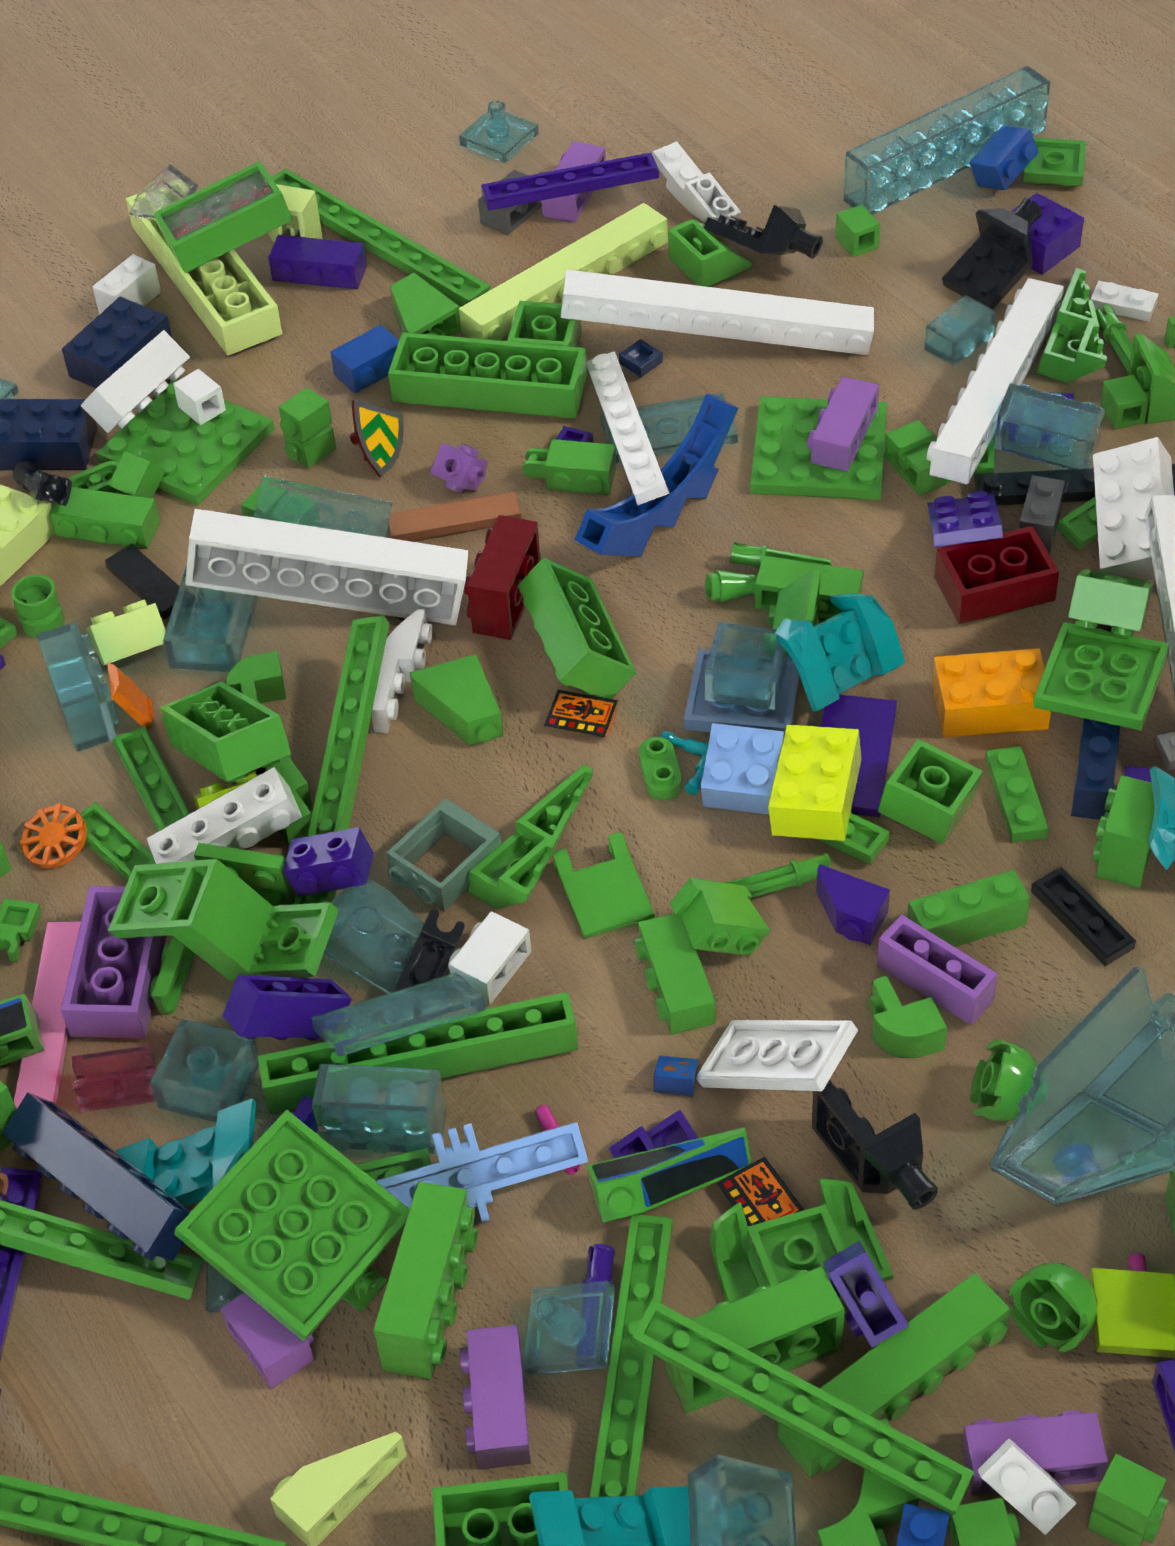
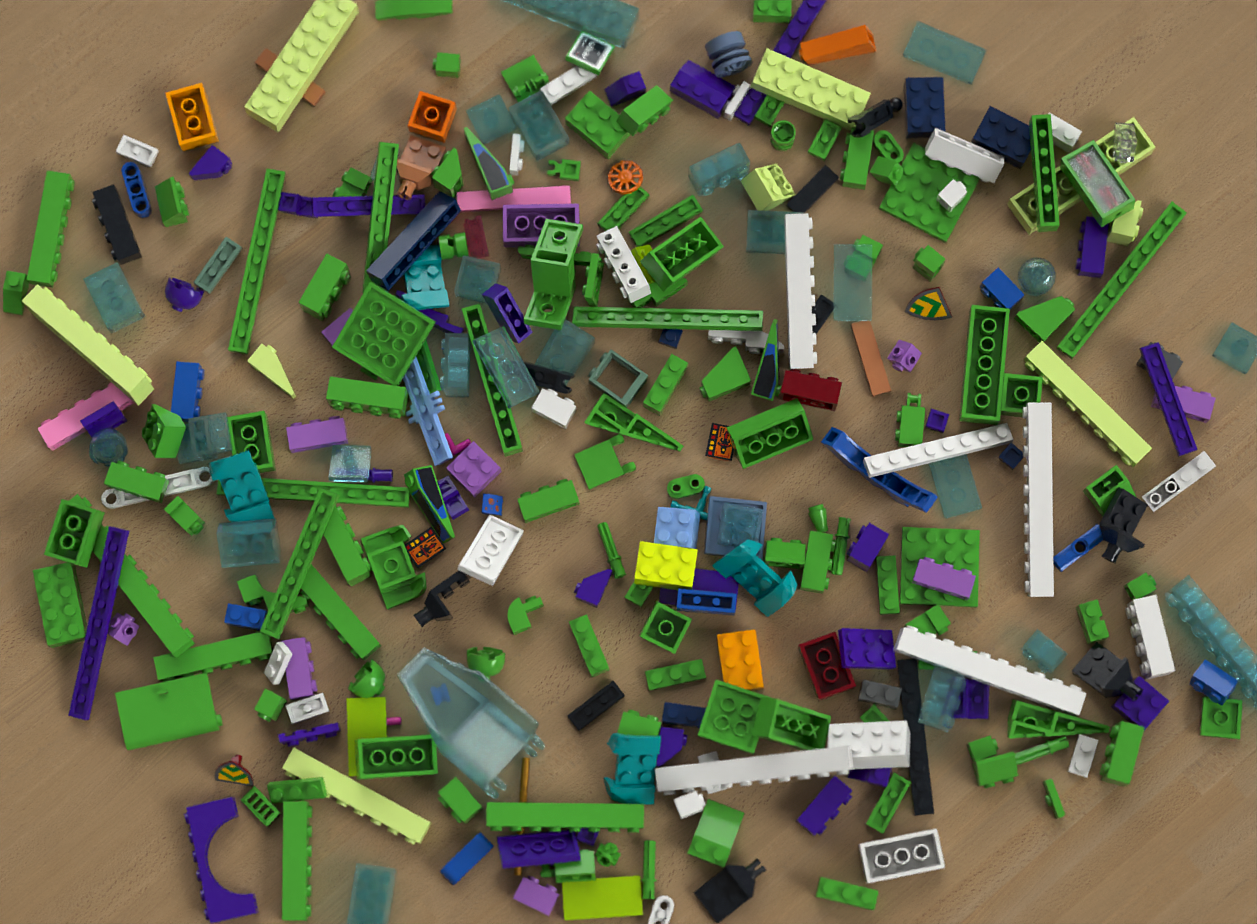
camera: 85 degrees right, 30 degrees up
(61, 559) = (824, 139): none -> bright green plate
(124, 1113) = (458, 241): none -> bright green wheel
(130, 697) = (715, 199): orange piece -> none
(165, 1357) = (325, 287): none -> bright green brick
(191, 273) = (1044, 173): none -> bright green brick
(259, 677) = (733, 261): bright green brick -> none
(328, 862) = (594, 320): dark purple brick -> none
(348, 318) = (1036, 276): none -> clear light blue cylinder
(375, 781) = (670, 337): none -> dark blue plate
(447, 623) = (768, 373): none -> slope
(466, 782) = (665, 384): none -> bright green brick
(602, 1094) = (473, 469): none -> medium lavender brick
(720, 917) = (575, 521): bright green hips -> none
(785, 280) = (1070, 555): none -> blue piece
(787, 512) = (868, 546): none -> dark purple brick
(849, 509) = (887, 585): none -> bright green plate
(865, 1294) = (364, 593): dark purple brick -> none
(884, 722) = (706, 602): none -> blue brick
(912, 278) = (1089, 616): none -> bright green piece
(934, 210) = (1150, 637): none -> white brick
(936, 969) = (550, 628): medium lavender brick -> none
(1121, 243) = (1121, 753): none -> bright green brick
(1124, 1430) = (307, 708): none -> white plate

